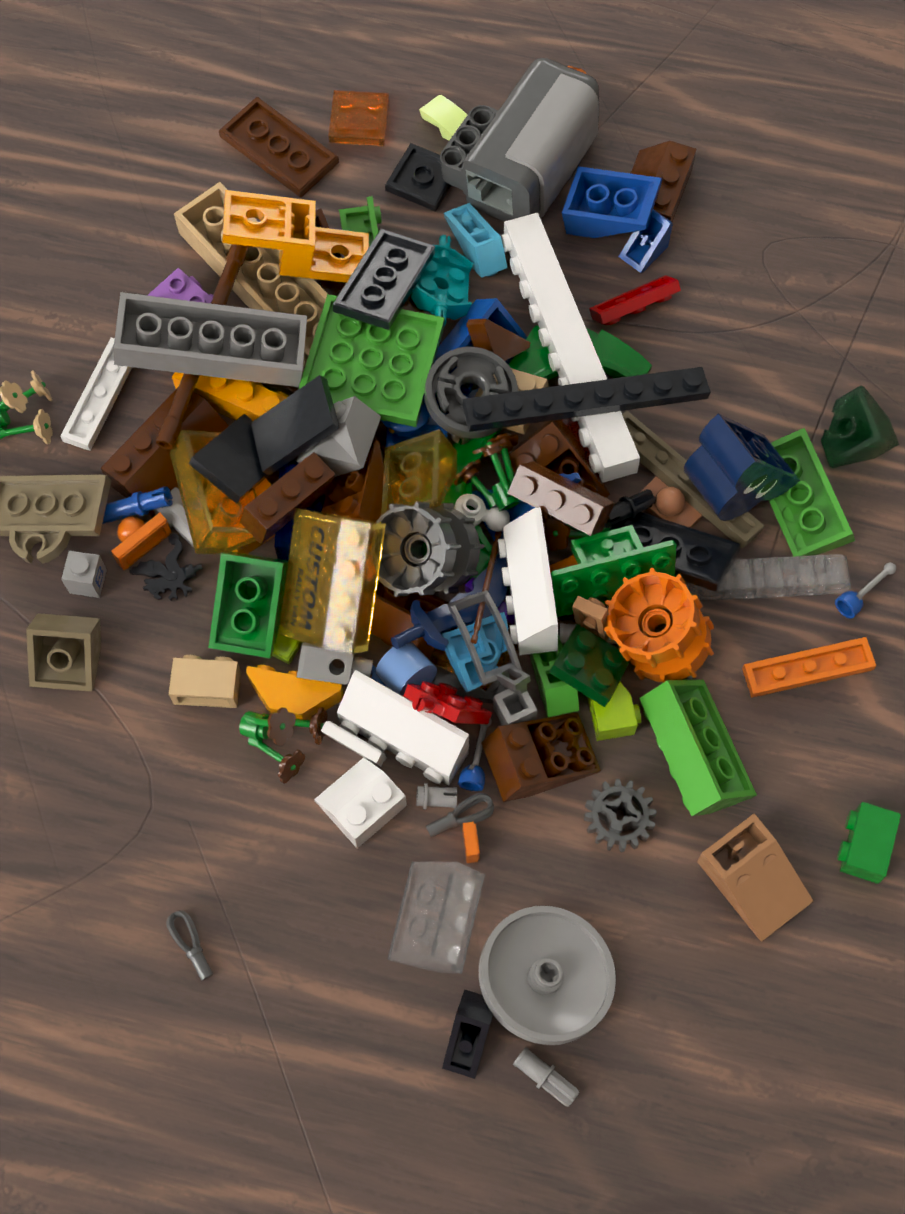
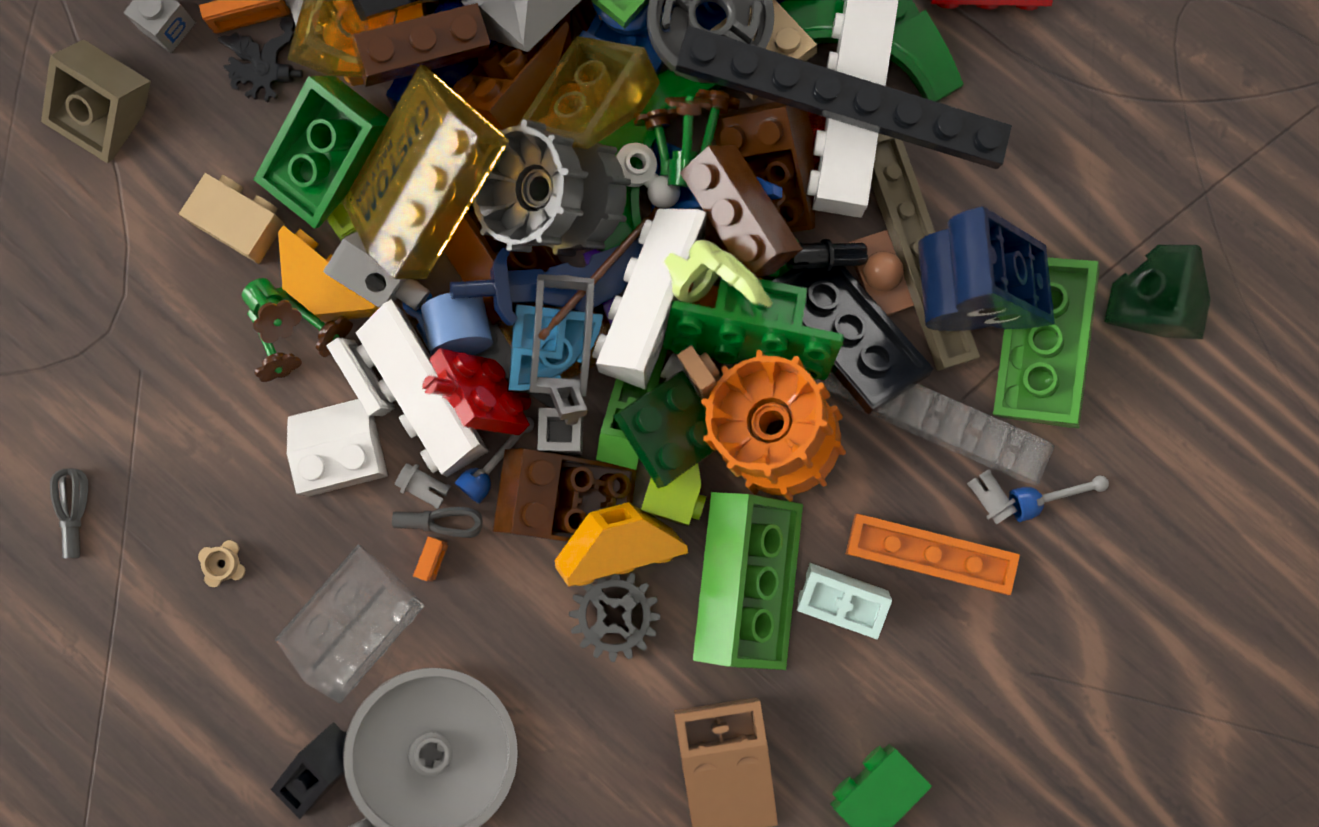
camera: 25 degrees right, 15 degrees up
(320, 914) = (209, 561): none -> tan plate
(557, 545) = (703, 269): none -> yellowish green hair
(594, 762) = (616, 543): none -> light orange slope
(769, 725) = (844, 601): none -> light aqua hinge
(826, 611) = (993, 500): none -> light grey pin

